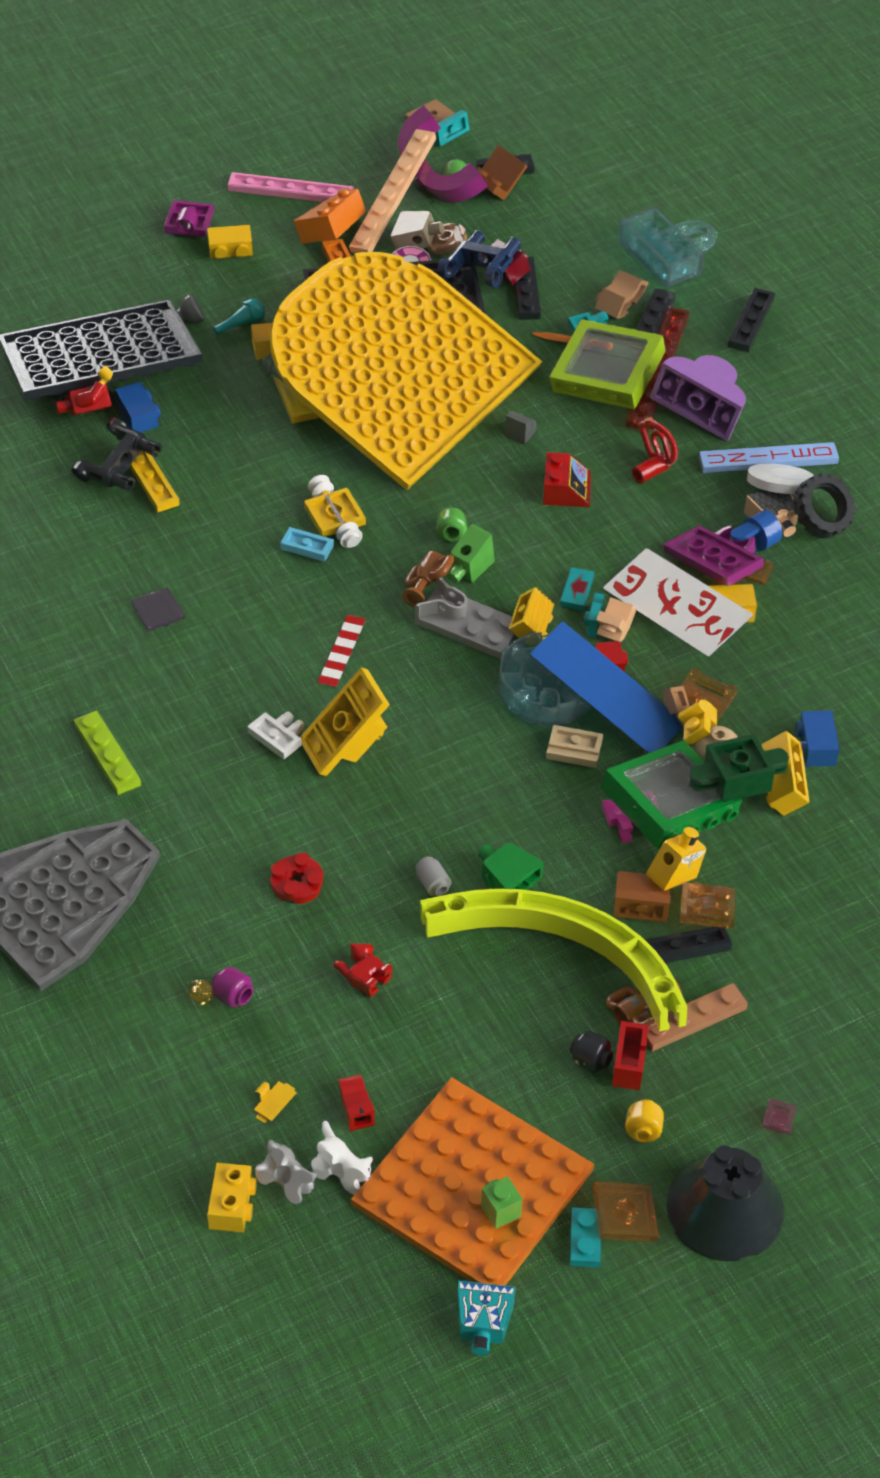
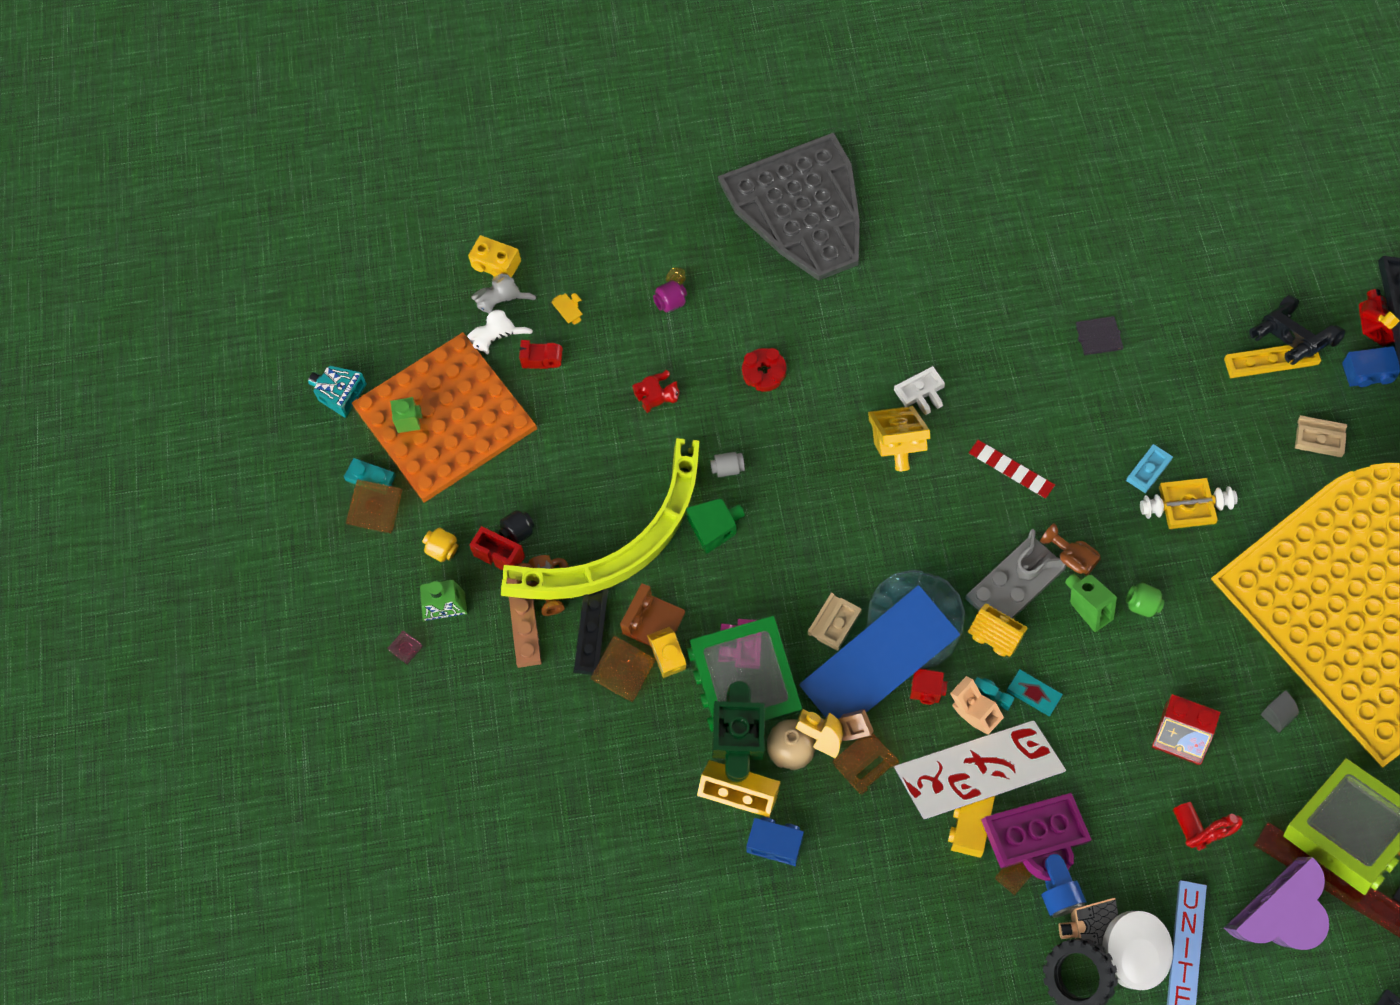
camera: 115 degrees right, 15 degrees up
(107, 752) = (941, 265): lime plate -> none
(226, 434) = (1321, 436): none -> tan plate
(714, 1093) = (442, 600): none -> bright green torso
(725, 1205) = (351, 582): black cone -> none

